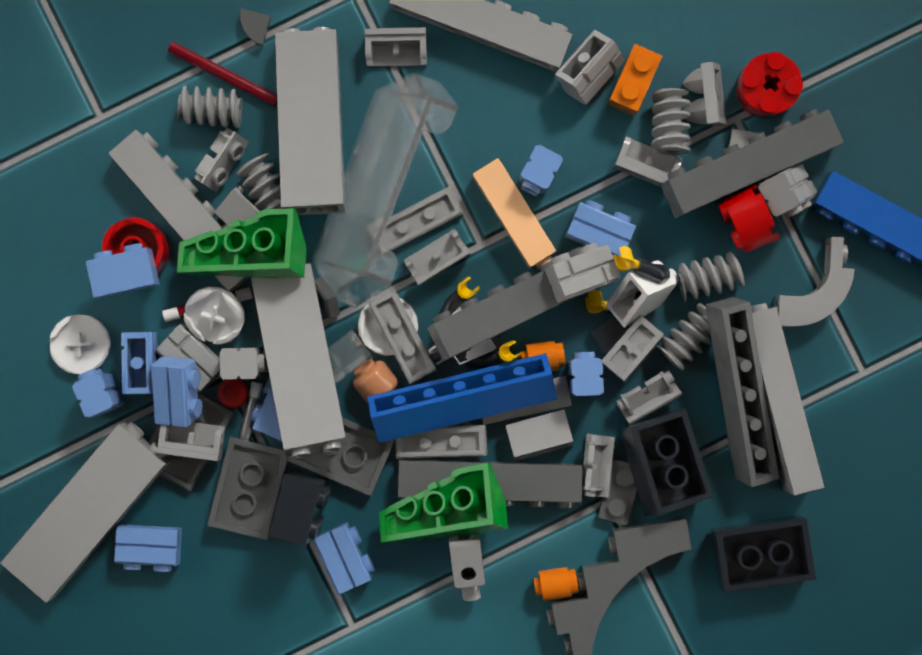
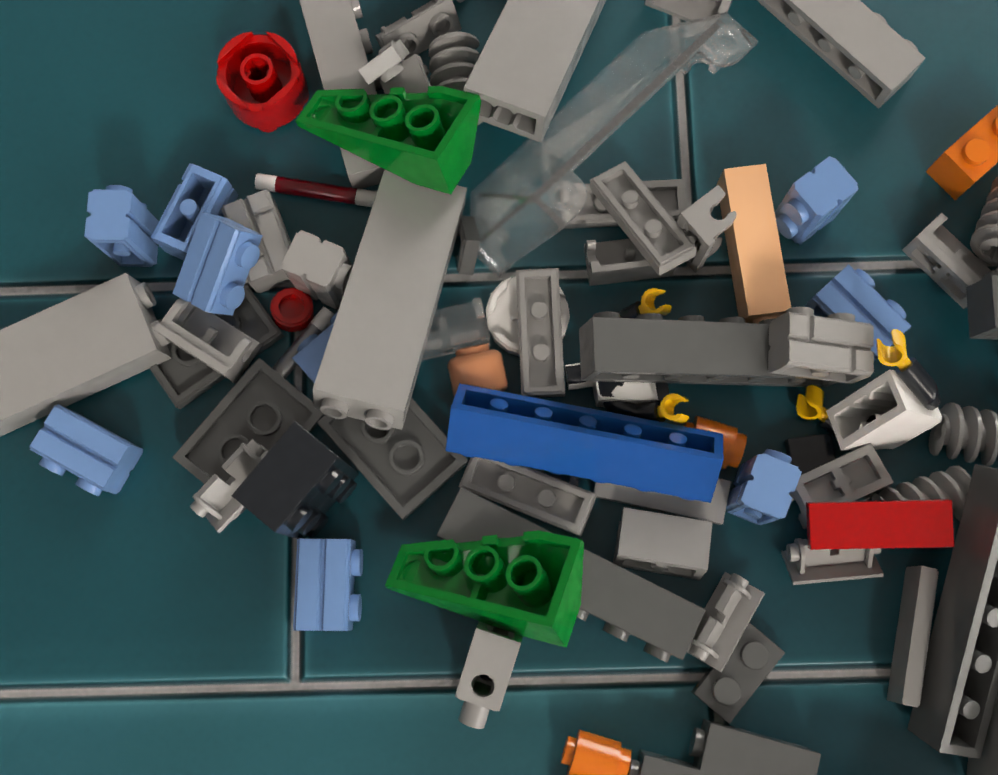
camera: 25 degrees right, 10 degrees down
(79, 344) = (142, 163): white tile -> none
(122, 271) = (226, 84): medium blue brick -> none
(214, 315) = (317, 199): white tile -> none
(217, 204) = (386, 64): none -> light grey plate
(255, 537) = (215, 497): none -> light grey hinge
(434, 231) = (642, 218): none -> light grey tile
(476, 228) = (703, 228): none -> light grey hinge
(590, 67) = (930, 109): light grey brick -> none
(663, 367) = (880, 524): none -> red tile
(665, 462) = (824, 661): black brick -> none
(715, 421) = (912, 635): none -> light grey tile

